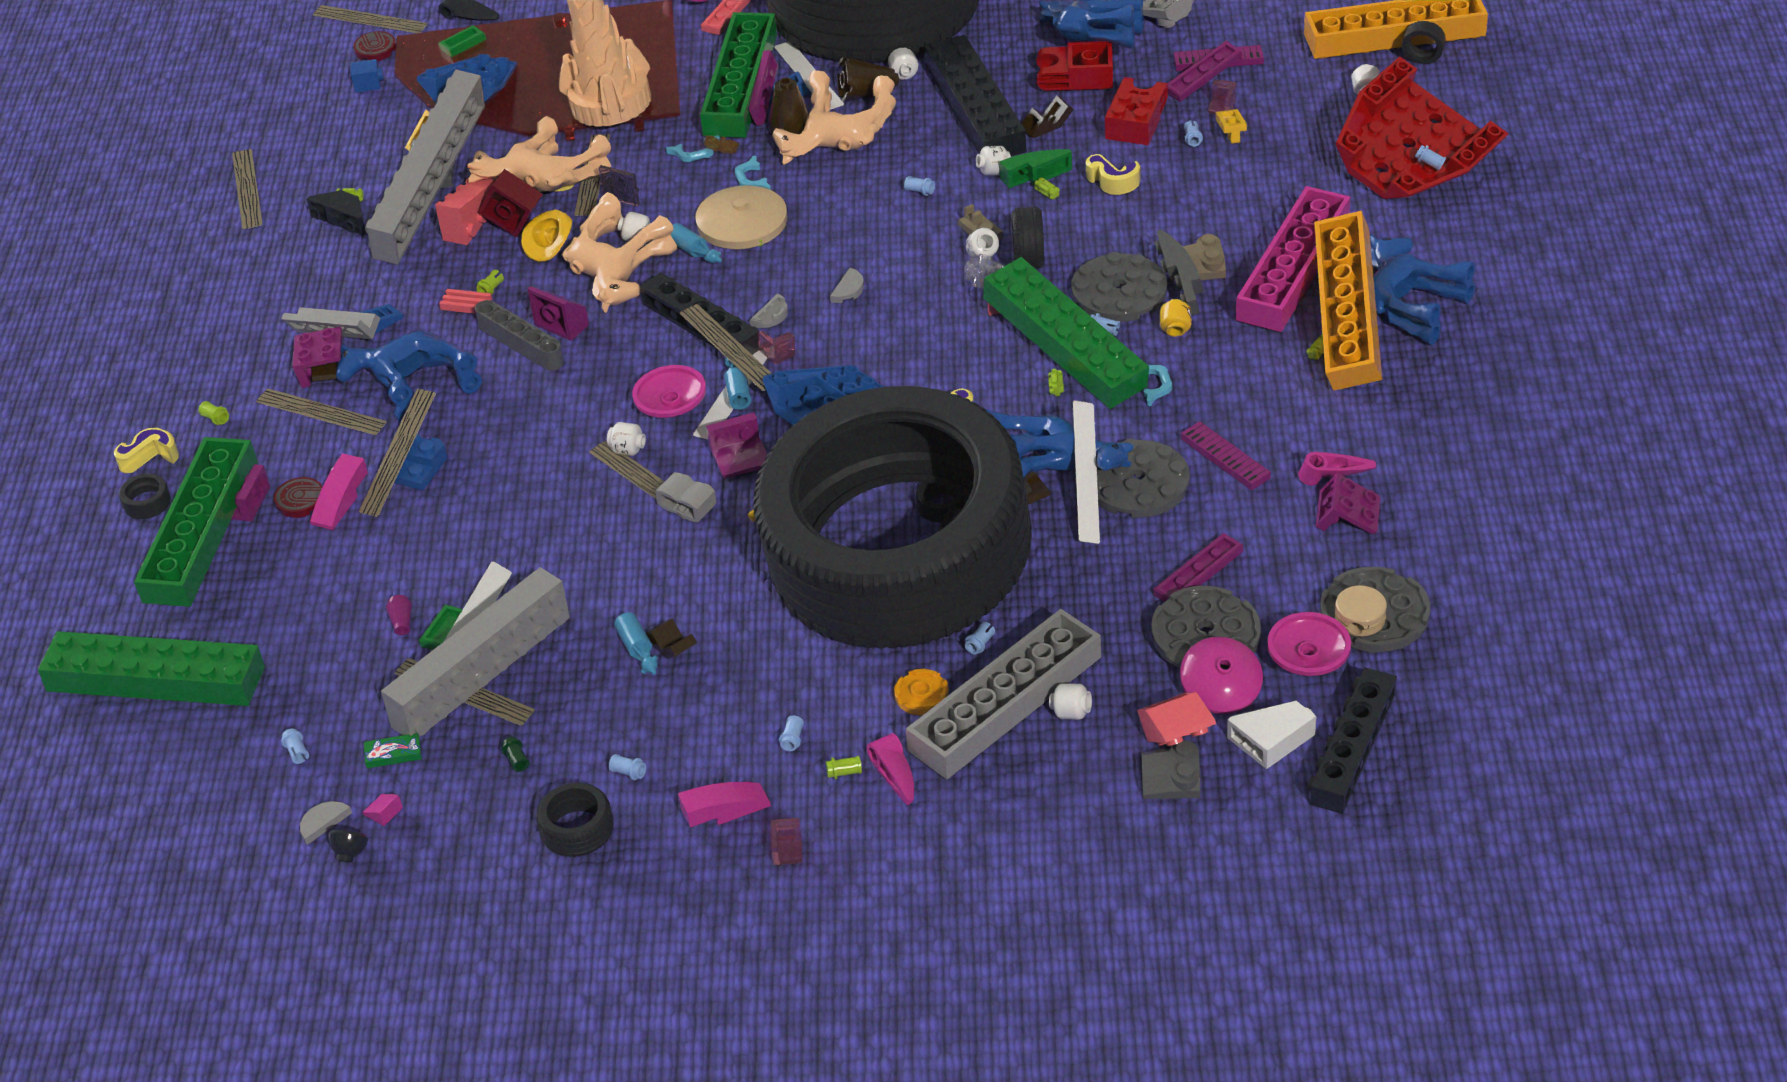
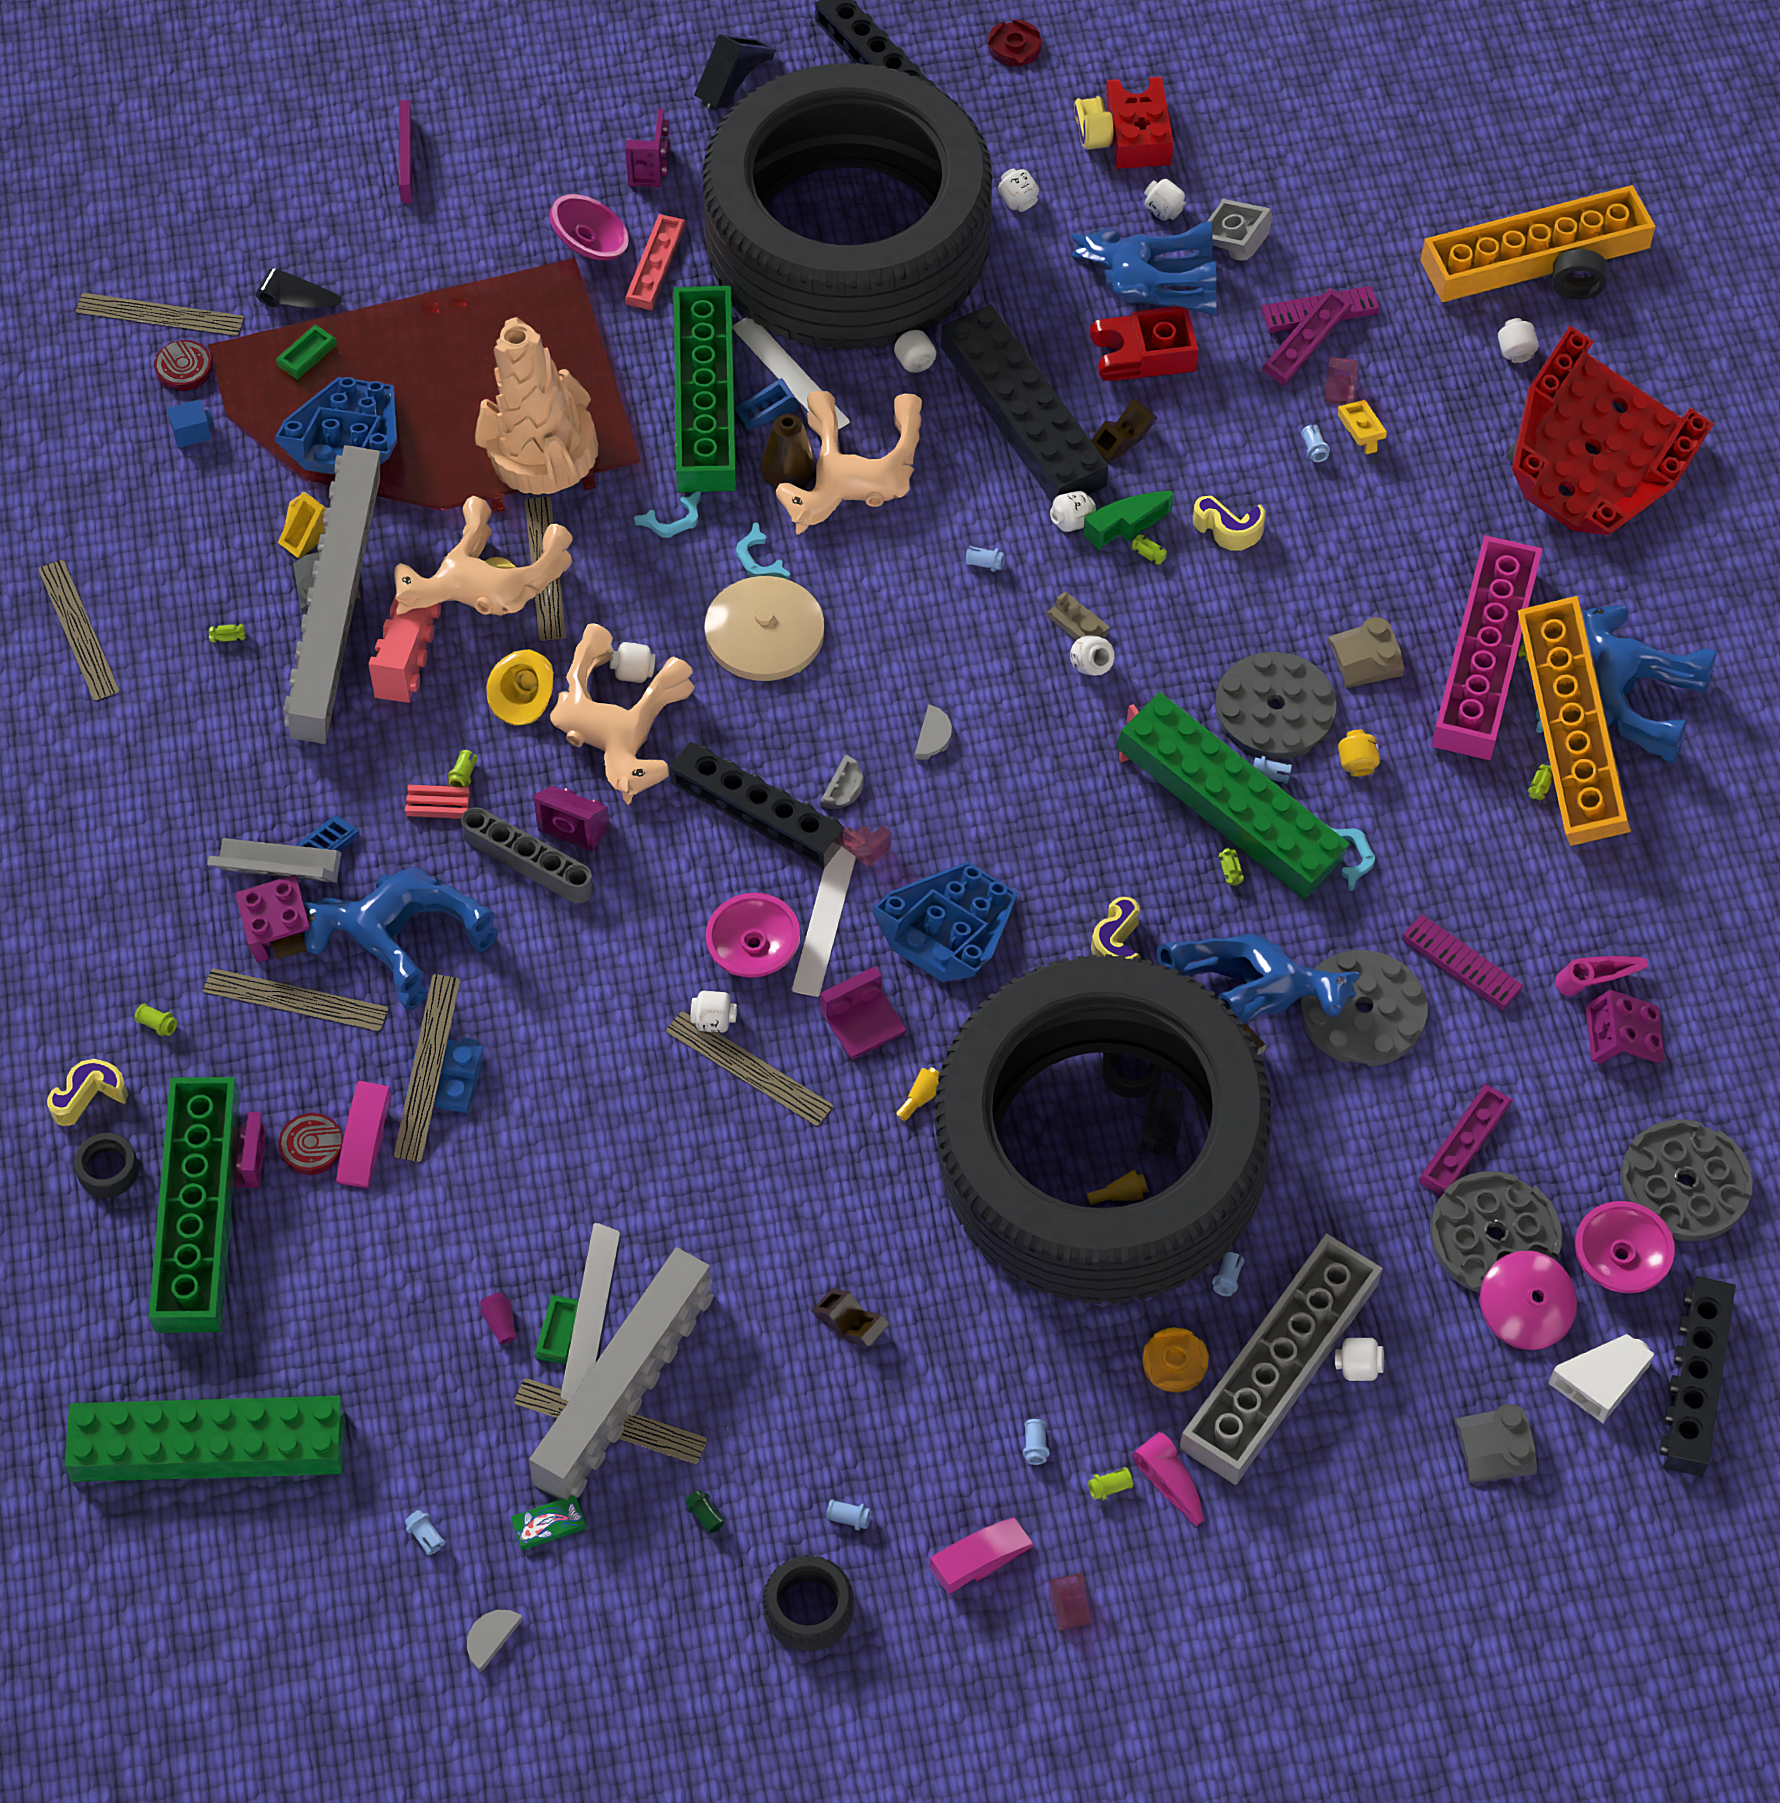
camera: 15 degrees left, 15 degrees up
(339, 210) = (225, 664): black slope -> none
(347, 844) = (536, 1672): black brick -> none
(383, 808) = (561, 1610): dark pink slope -> none
(510, 203) = (463, 644): dark red brick -> none
(620, 184) = (594, 595): clear purple piece -> none
(636, 641) = (811, 1327): dark azure wheel -> none
(686, 497) = (815, 1097): light grey brick -> none
(694, 244) = (718, 683): dark azure wheel -> none
(723, 145) = (712, 510): clear orange piece -> none
(726, 344) = (810, 856): dark tan sticker -> none
(737, 387) = (831, 907): dark azure wheel -> none
(763, 87) = (743, 410): magenta tile -> none
(858, 78) = (871, 386): dark brown cone -> none
(979, 268) = (1111, 694): clear brick -> none
(1028, 235) = (1153, 648): black tyre -> none
(1086, 472) = (1310, 1019): white sticker -> none
(1135, 112) = (1237, 416): red brick -> none
(1174, 718) = (1493, 1376): coral slope -> none
(1180, 268) = (1348, 672): dark grey slope -> none
(1361, 610) = (1676, 1193): tan head -> none
(1430, 157) = (1619, 468): light blue pin -> none

